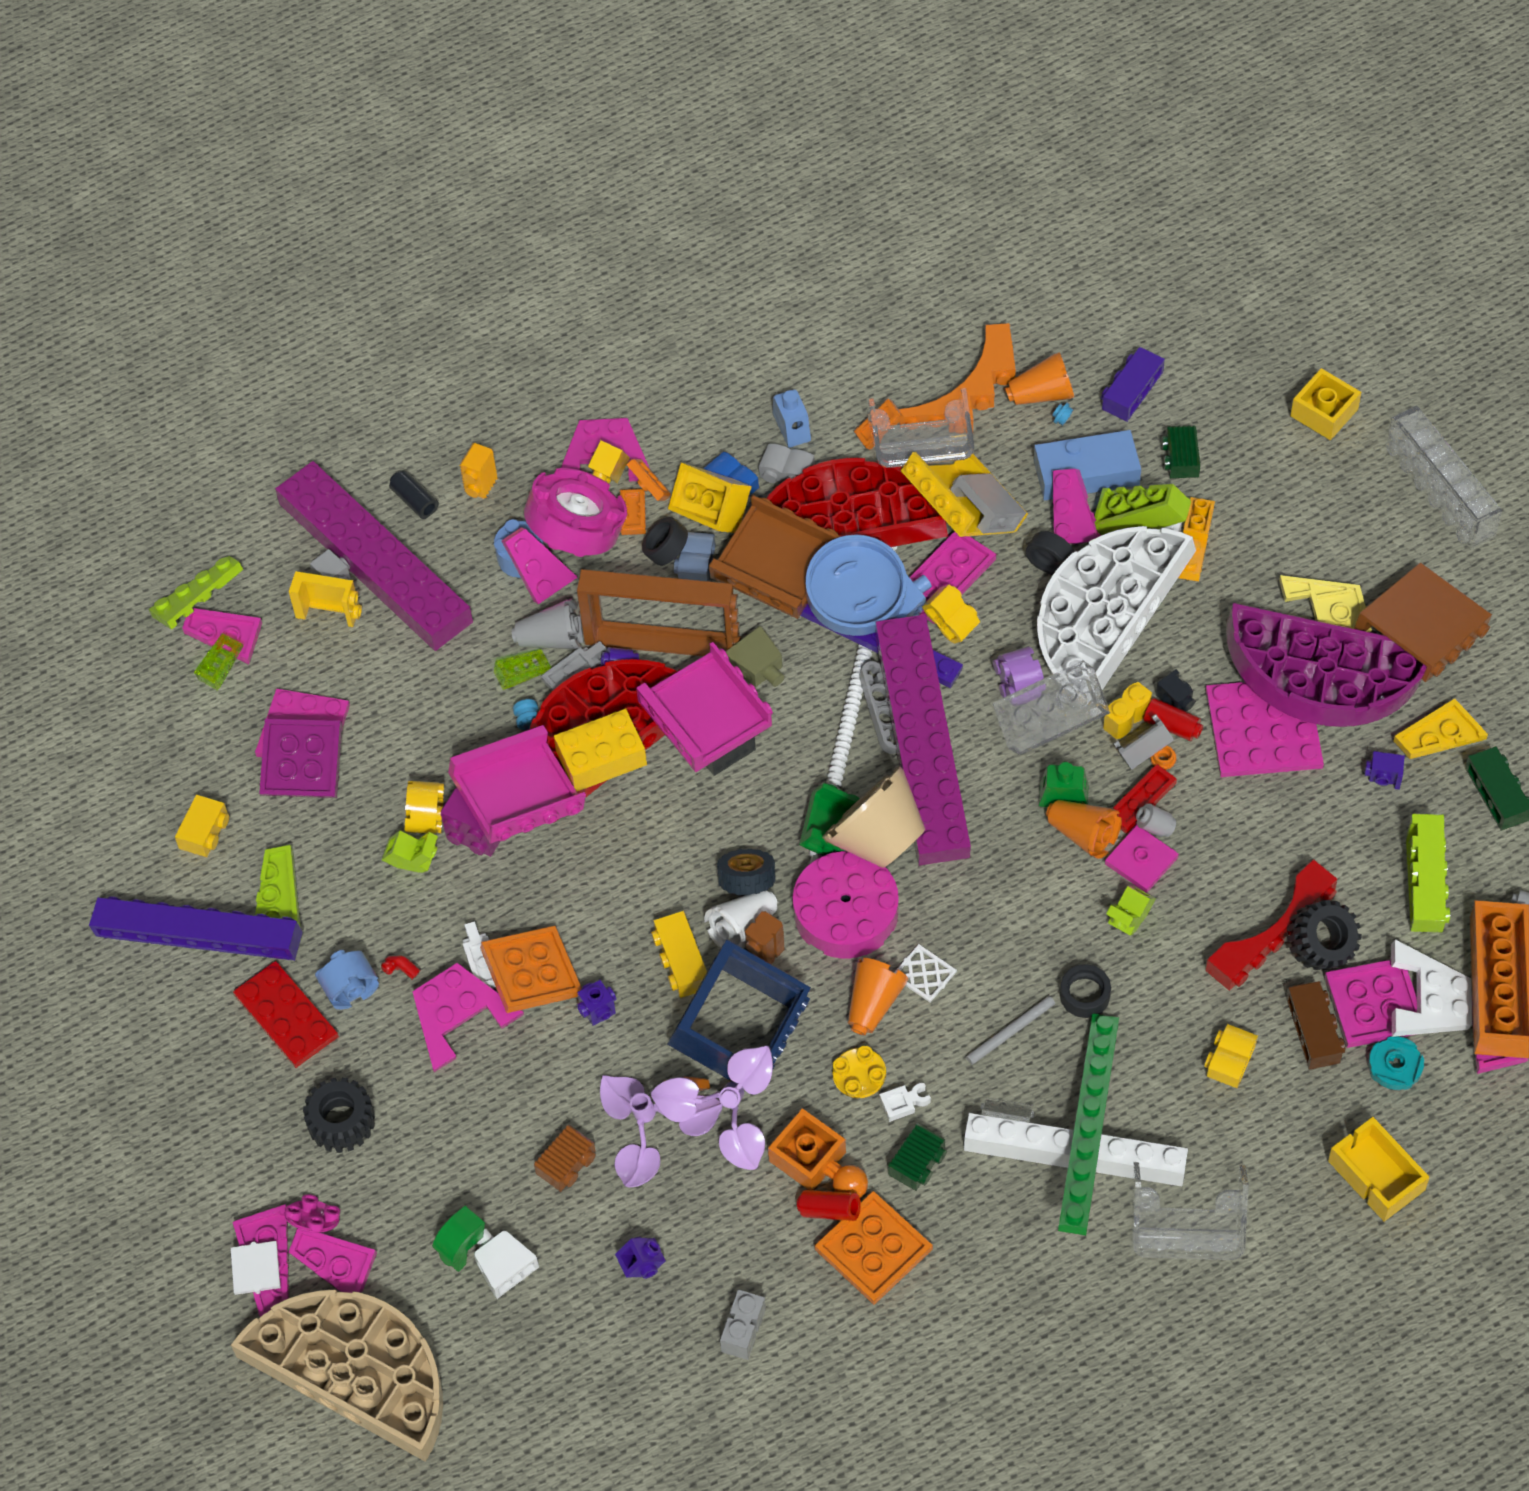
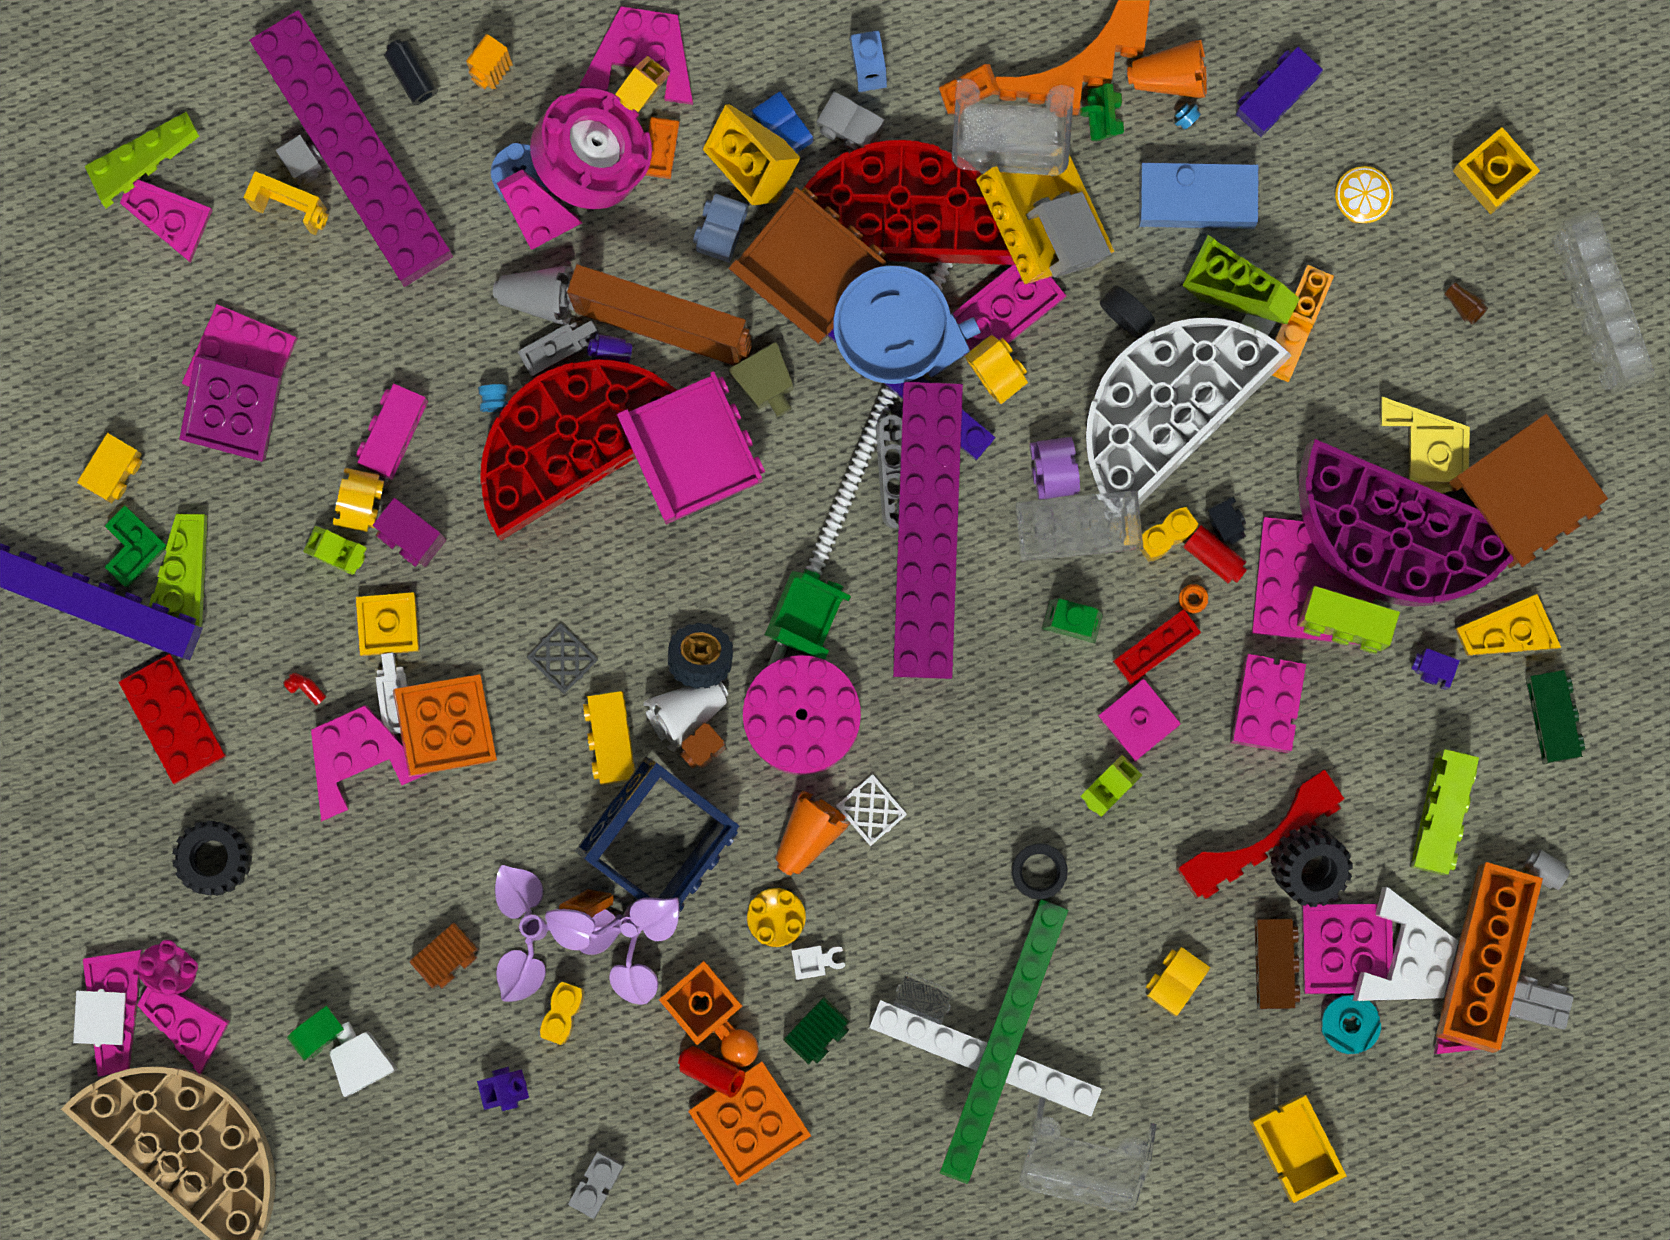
camera: 10 degrees right, 25 degrees up
(225, 665) = (135, 264): clear neon green slope -> none
(235, 880) = (140, 548): none -> green plate
(347, 978) = (242, 698): medium blue brick -> none
(447, 740) = (391, 431): none -> dark pink brick
(465, 902) = (387, 624): none -> yellow plate
(512, 677) = (501, 342): clear neon green slope -> none
(514, 785) = (461, 512): dark pink panel -> none
(596, 1002) = (516, 787): dark purple brick -> none
(600, 750) = (563, 482): yellow brick -> none
(642, 914) = (578, 674): none -> dark grey window
(648, 480) = (685, 112): orange plate -> none
(664, 541) = (698, 213): black tyre -> none
(682, 1183) = (559, 1021): none -> yellow brick
(880, 822) = (852, 640): tan cone -> none
(992, 421) = (1101, 112): none -> green hips
(1010, 1030) = (949, 898): light grey bar -> none
(1071, 509) = (1163, 262): dark pink wing -> none
(1086, 825) = (1084, 671): orange cone -> none
(1145, 744) = (1175, 582): light grey hinge -> none
(1155, 820) = (1164, 682): light grey brick -> none
(1182, 452) = (1313, 199): dark green brick -> none
(1223, 444) = (1364, 194): none -> dish
(1249, 822) = (1268, 703): none -> dark pink piece
(1300, 735) = (1348, 620): none -> lime brick
(1331, 503) = (1467, 304): none -> reddish brown cone

